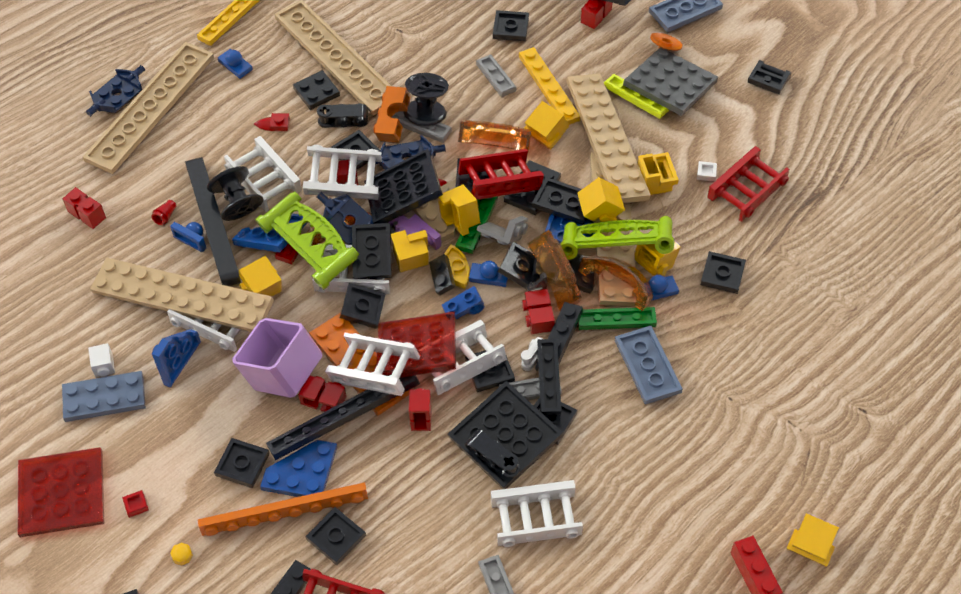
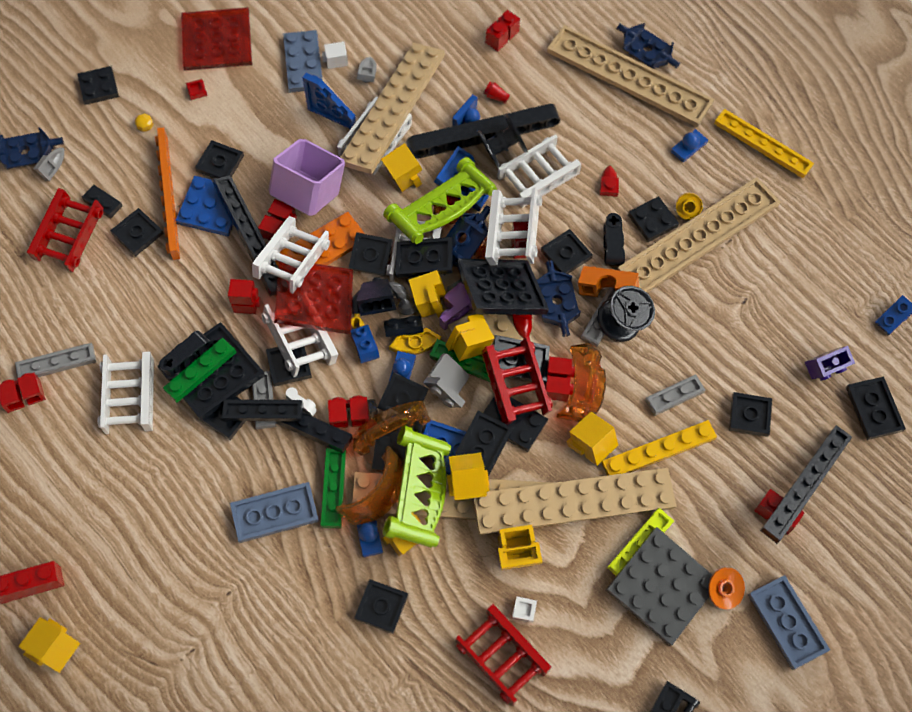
camera: 90 degrees right, 10 degrees up
(124, 329) = (367, 70): none -> light grey plate
(305, 60) = (689, 205): none -> yellow plate
(414, 292) = (377, 297): none -> black torso
(482, 146) = (559, 378): none -> red piece
(525, 451) = (199, 370): none -> green plate

